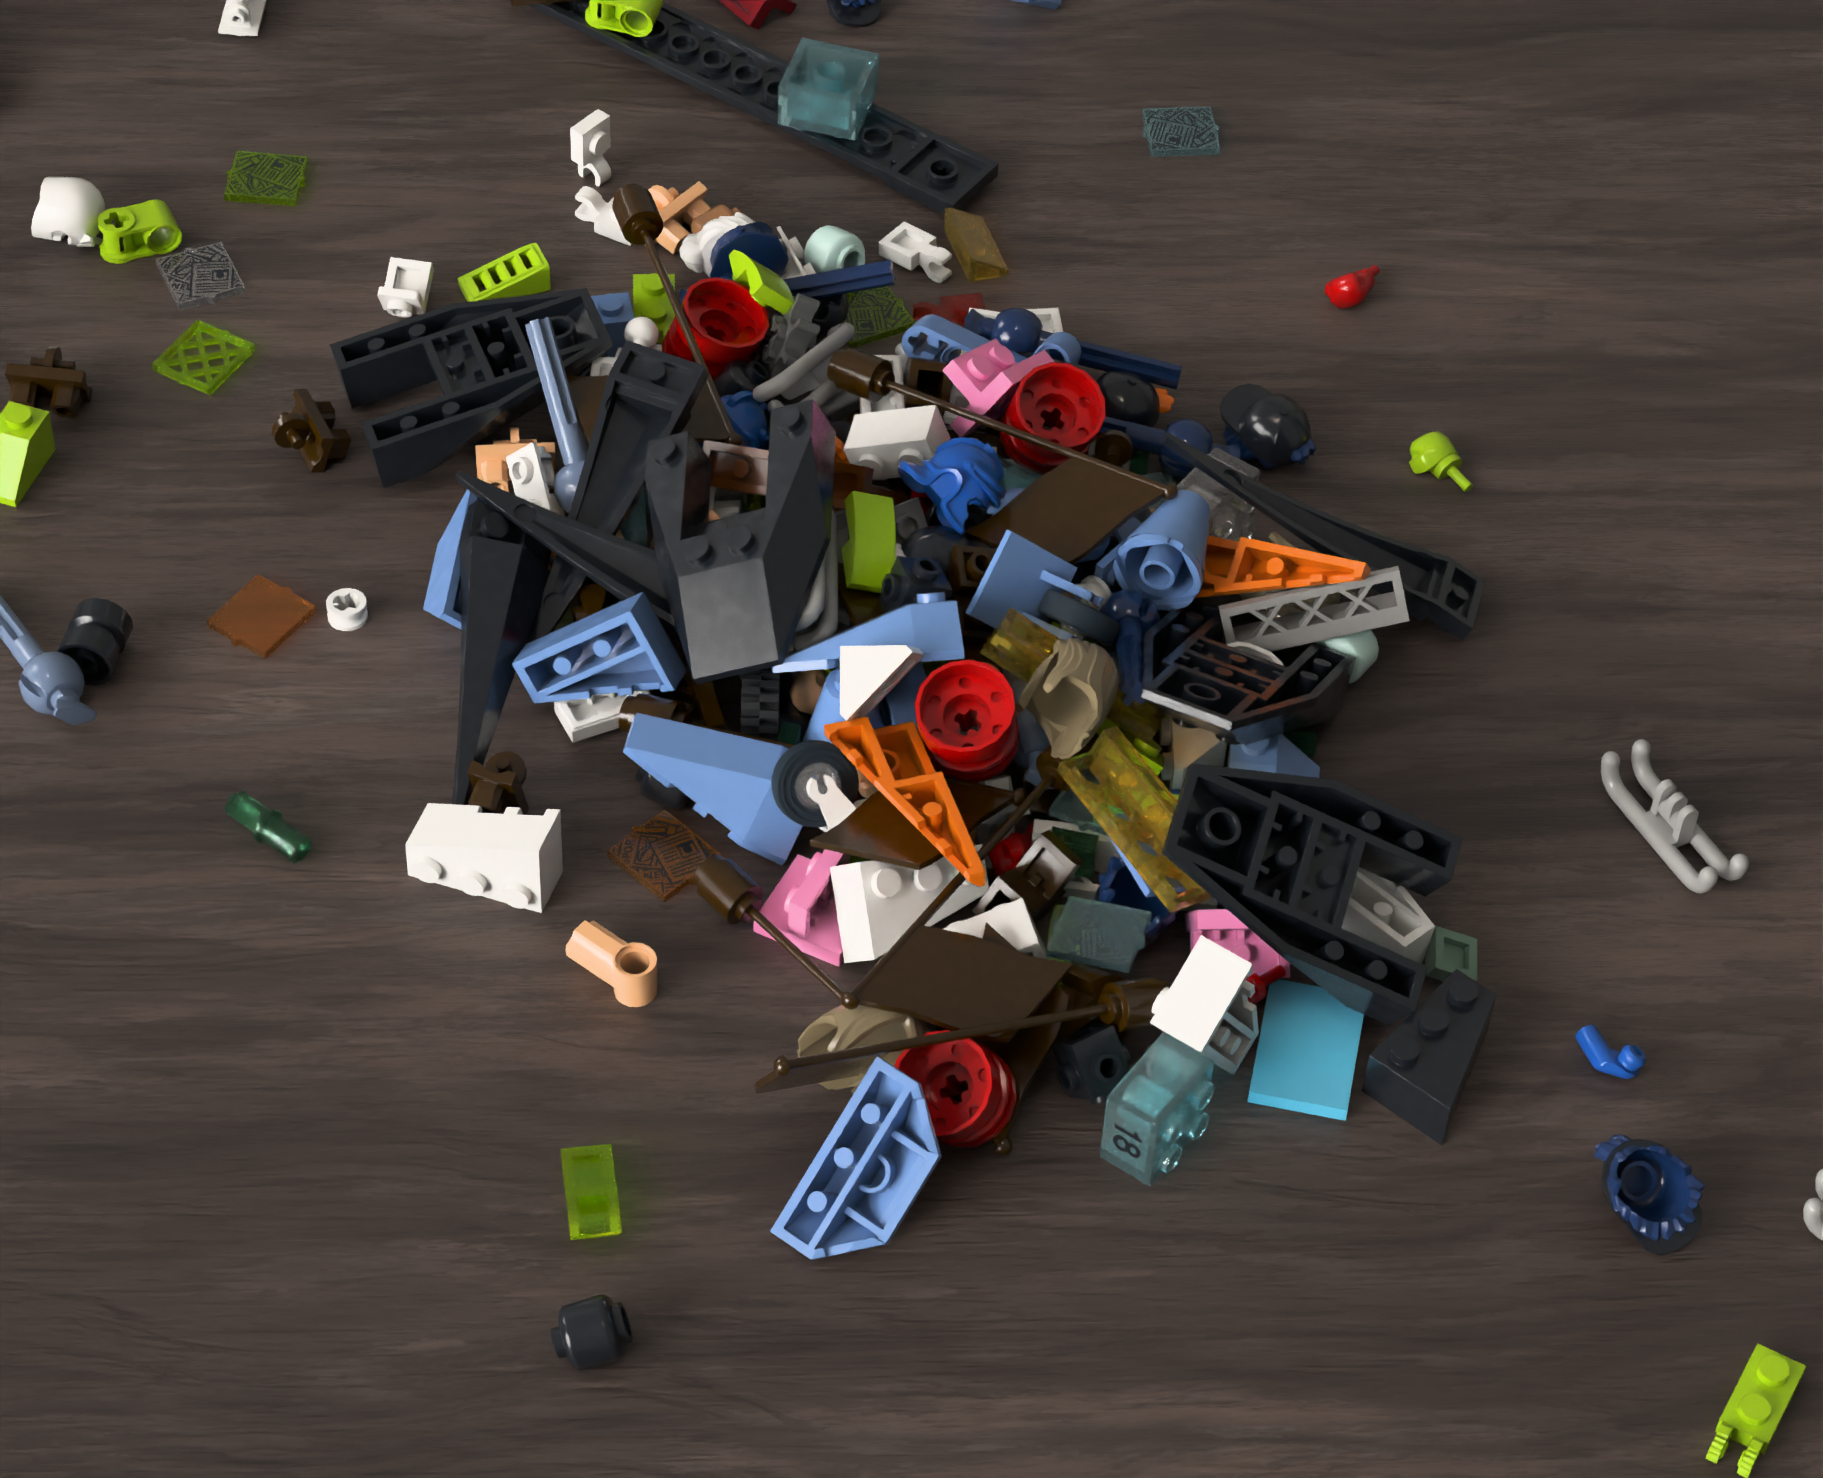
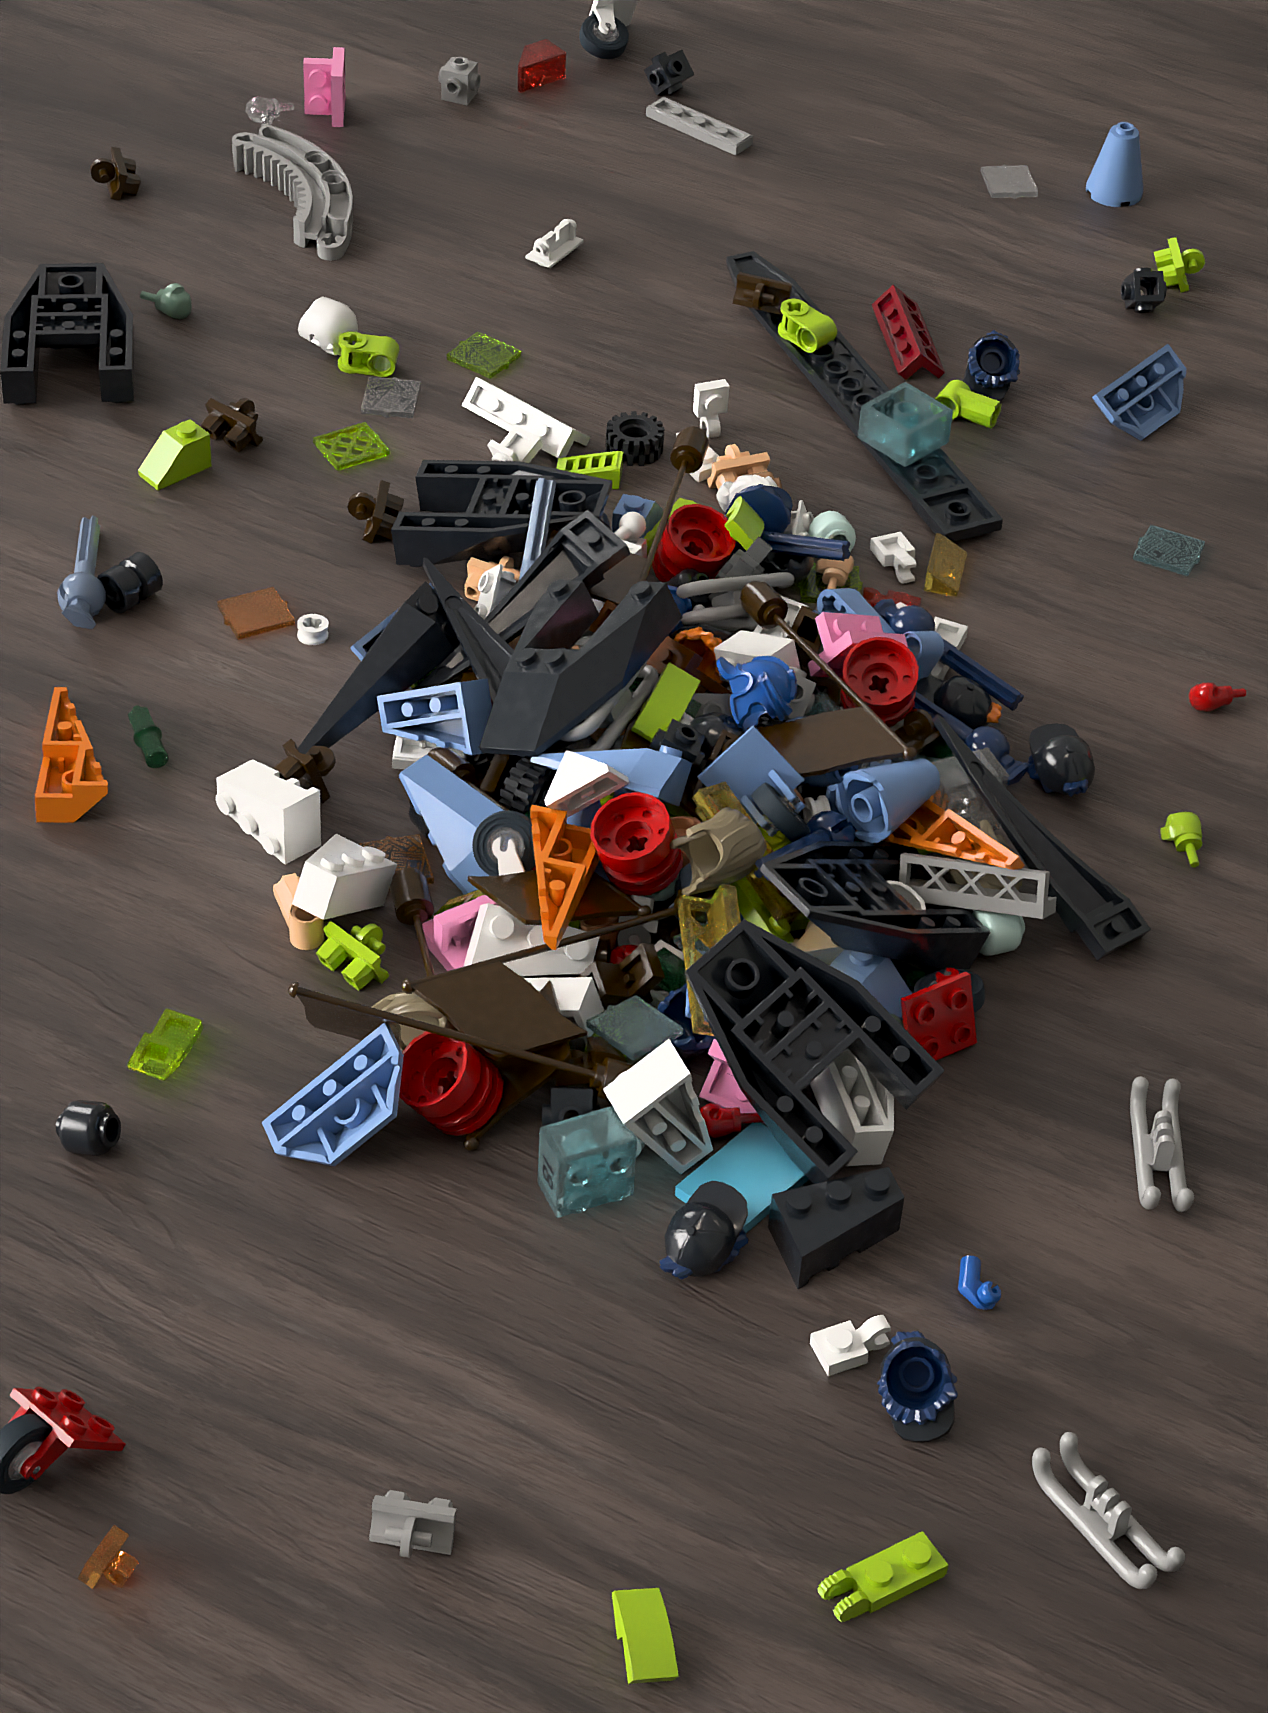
camera: 30 degrees right, 5 degrees down
(218, 919) = (69, 774): none -> orange wedge
(376, 243) = (509, 411): none -> white fence
(527, 203) = (636, 436): none -> black tyre
(644, 902) = (343, 879): none -> white wedge
(717, 977) = (359, 950): none -> lime hips
(787, 866) = (454, 902): none -> clear neon green sticker
(866, 35) = (969, 405): none -> lime piece
(872, 303) = (834, 572): none -> light nougat piece
(1325, 1127) = (706, 1231): none -> black hair
(1365, 754) = (943, 1010): none -> red plate
(1450, 952) = (906, 1163): sand green plate -> none
(1538, 1186) = (846, 1348): none -> white plate

